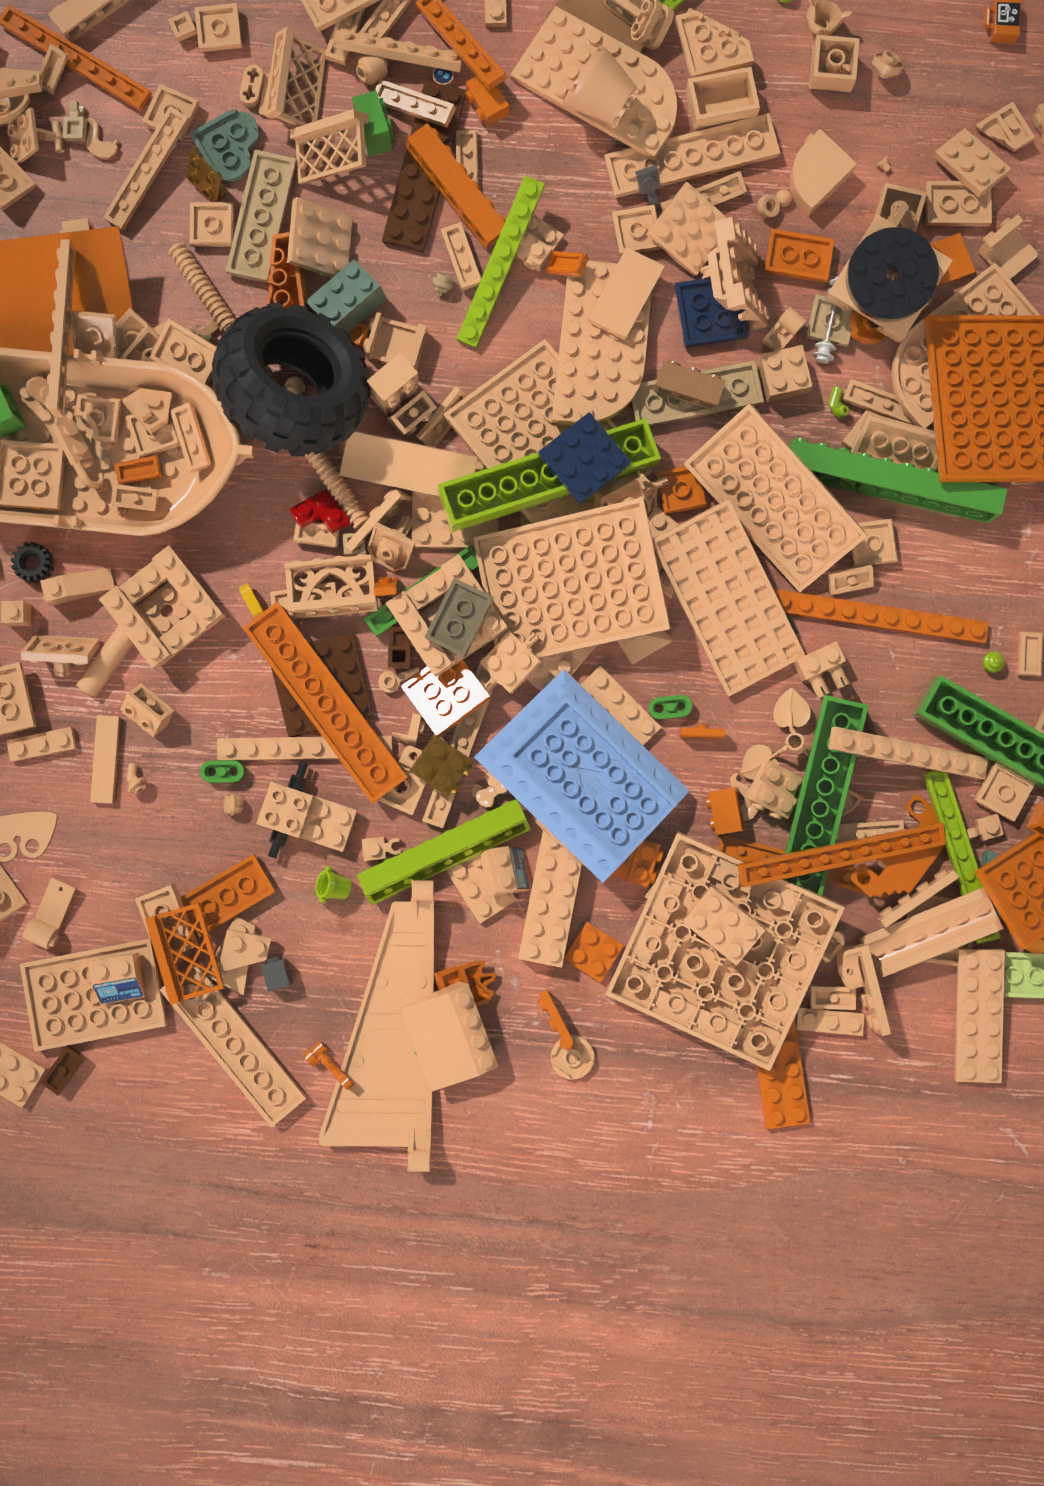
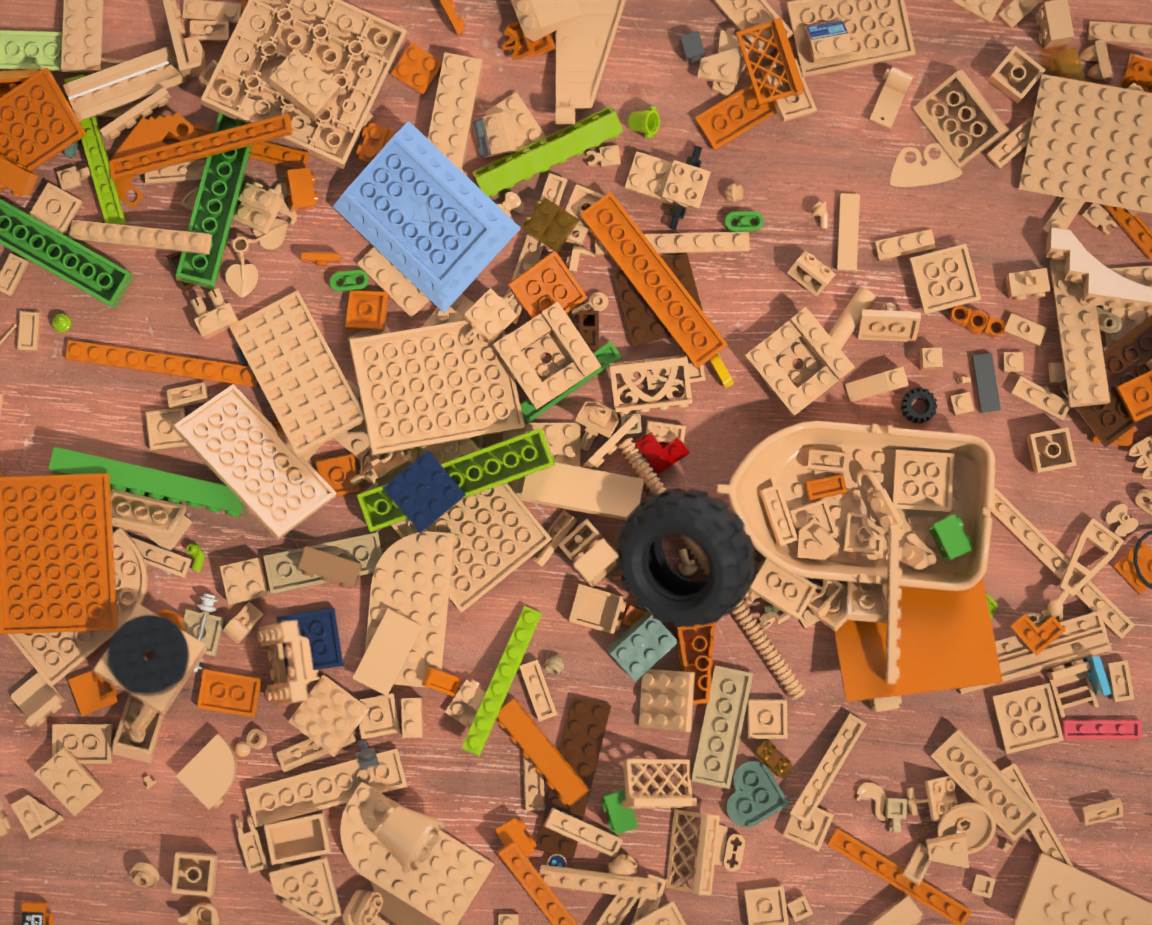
camera: 175 degrees right, 0 degrees up
(386, 586) = (601, 383): orange plate -> none
(459, 617) = (534, 349): dark tan plate -> none
(599, 227) = (412, 717): none -> light nougat brick
(650, 672) = (367, 310): none -> orange plate
(772, 94) = (251, 846): none -> light nougat hinge

